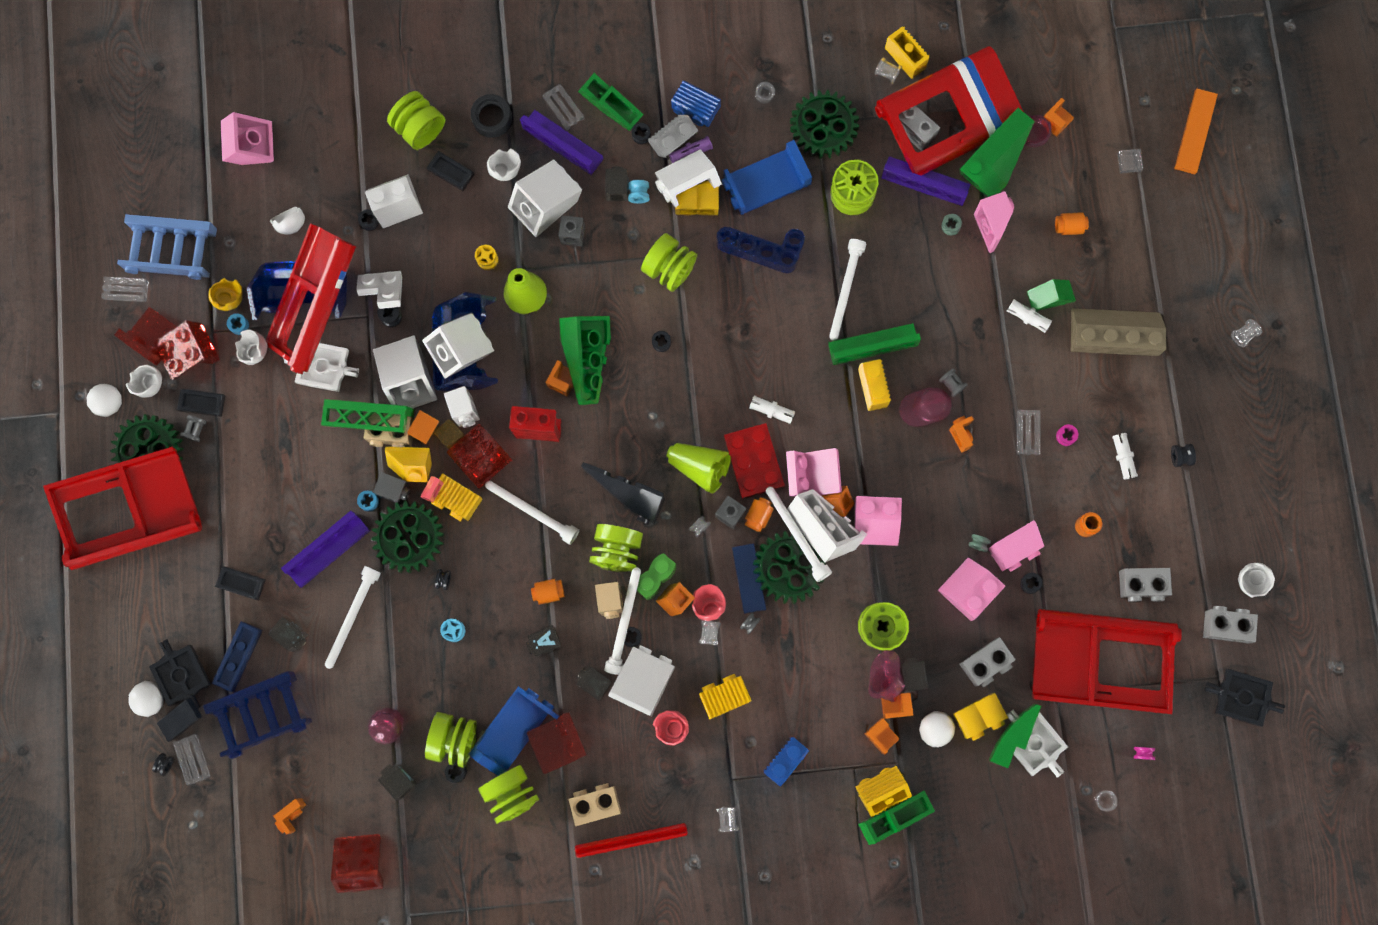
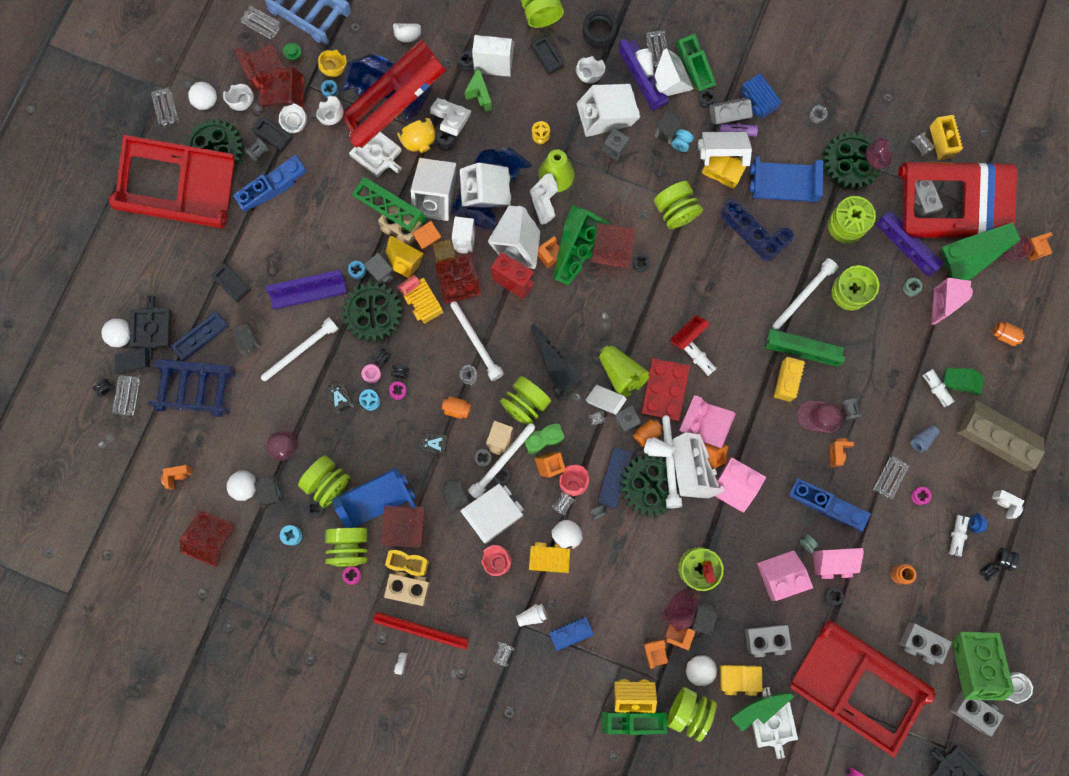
camera: 20 degrees right, 0 degrees up
(80, 445) = (168, 120): none -> clear tile
(176, 303) = (292, 51): none -> green plate
(215, 375) = (293, 118): none -> white hair
(229, 457) = (270, 185): none -> blue slope
(359, 327) = (418, 136): none -> yellow cylinder
(365, 789) = (241, 485): none -> white hair
(396, 244) = (478, 89): none -> bright green slope
(419, 644) = (339, 397): none -> clear smoke brick
(440, 602) = (371, 373): none -> bright pink tile
(449, 813) = (294, 536): none -> medium azure wheel
(469, 584) = (399, 371): none -> black bush
(483, 602) = (403, 391): none -> dark pink bush
(519, 381) = (517, 236): none -> white slope
(521, 324) = (541, 197): none -> white plate
(536, 824) = (348, 571): none -> dark pink bush
(550, 551) = (465, 380): none -> clear bush
(557, 127) = (645, 60): none -> white cone
(575, 779) = (412, 564): none -> yellow brick
(592, 127) = (672, 75): none -> white slope
(600, 622) = (484, 452): none -> dark grey bush
(623, 338) = (613, 245): none -> clear red bracket
(629, 889) = (400, 666): none -> white tile
(698, 502) = (606, 399): none -> white tile
(730, 662) = (567, 534): none -> white hair
(738, 763) = (533, 615): none -> white cone
(748, 388) = (689, 332): none -> red tile
(777, 525) = (656, 447): none -> white cone
(847, 105) = (878, 154): none -> clear pink hair
(892, 625) = (708, 572): none -> red tile
(898, 245) = (860, 279): none -> lime wheel
(952, 777) = (696, 716): none -> lime wheel
(979, 493) = (829, 506): none -> blue slope
(1041, 376) = (923, 440): none -> sand blue cone
(1137, 434) = (978, 523): none -> blue plate
(1154, 395) = (1009, 501): none -> white bracket
(1172, 476) = (989, 571): none -> black bush
(1211, 576) = (982, 666): none -> bright green piece

